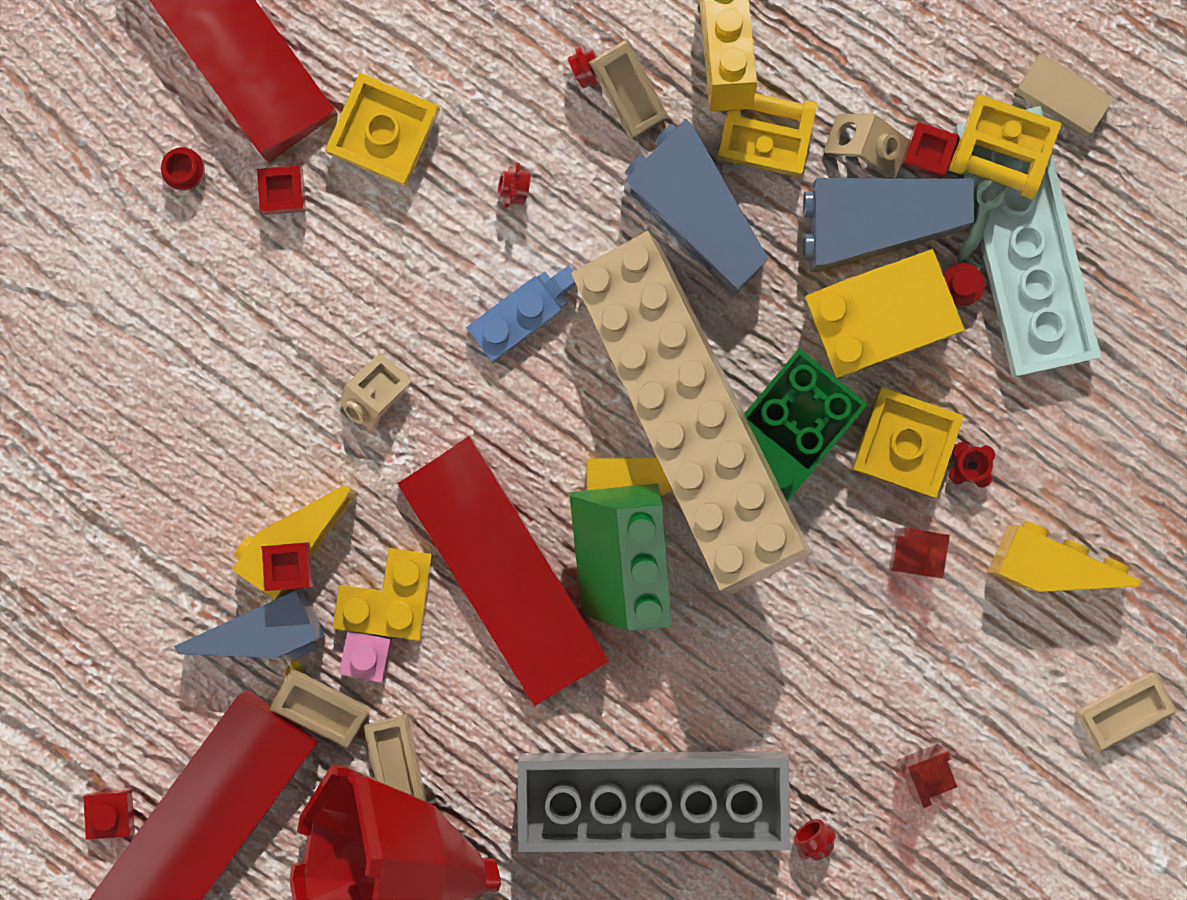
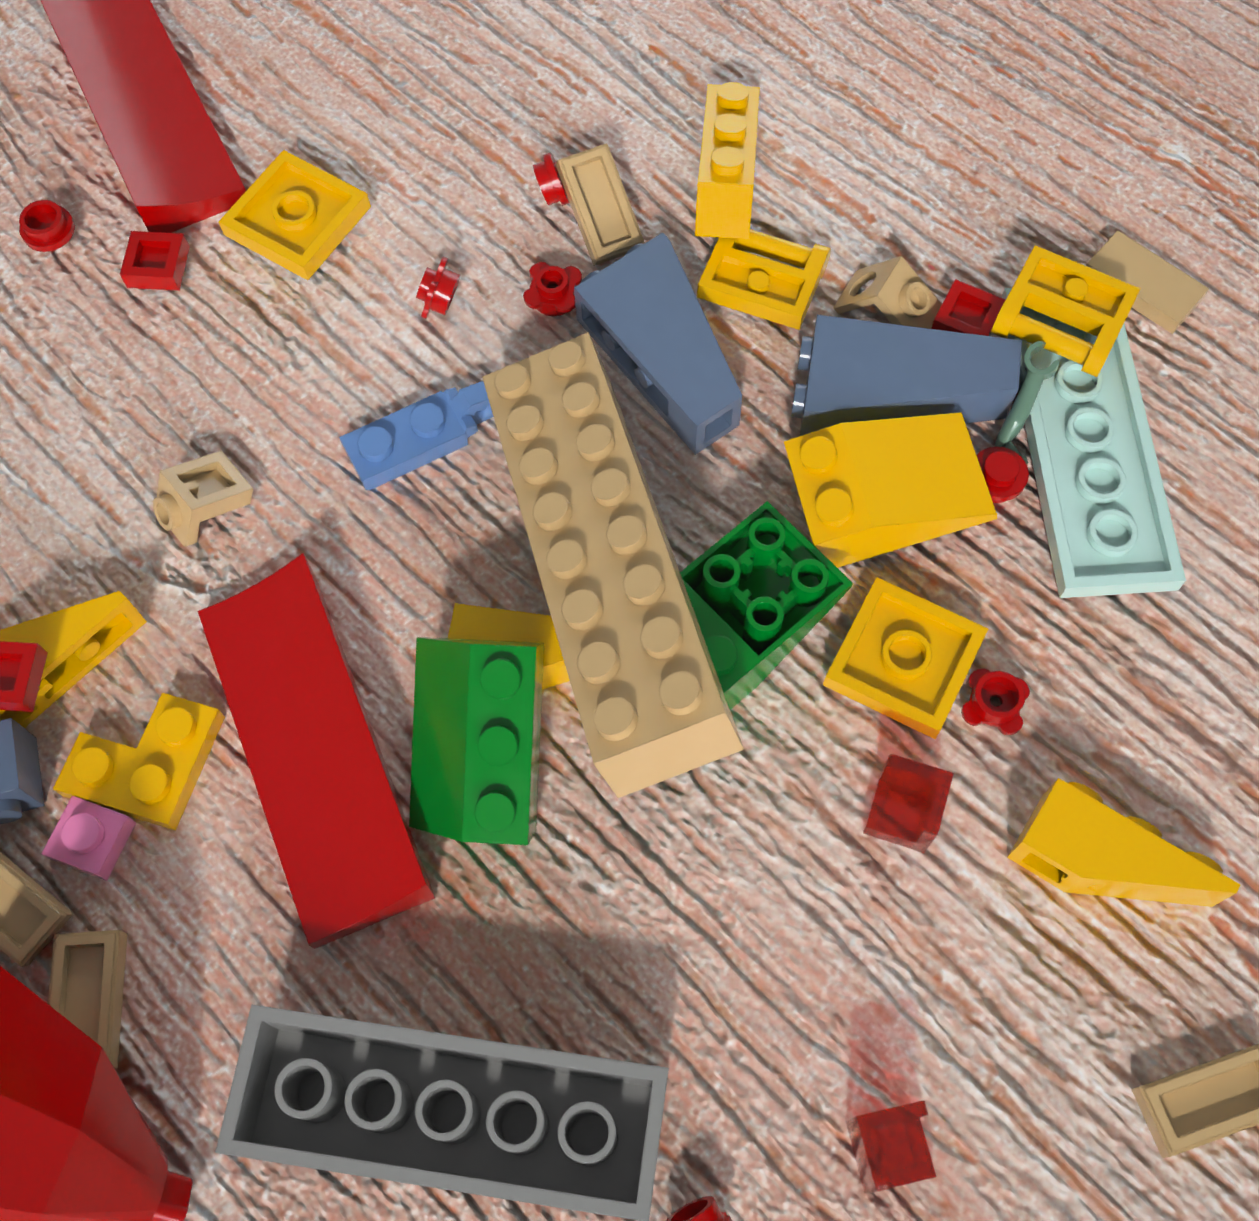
camera: 10 degrees right, 20 degrees down
(594, 178) = (552, 300): none -> red plate

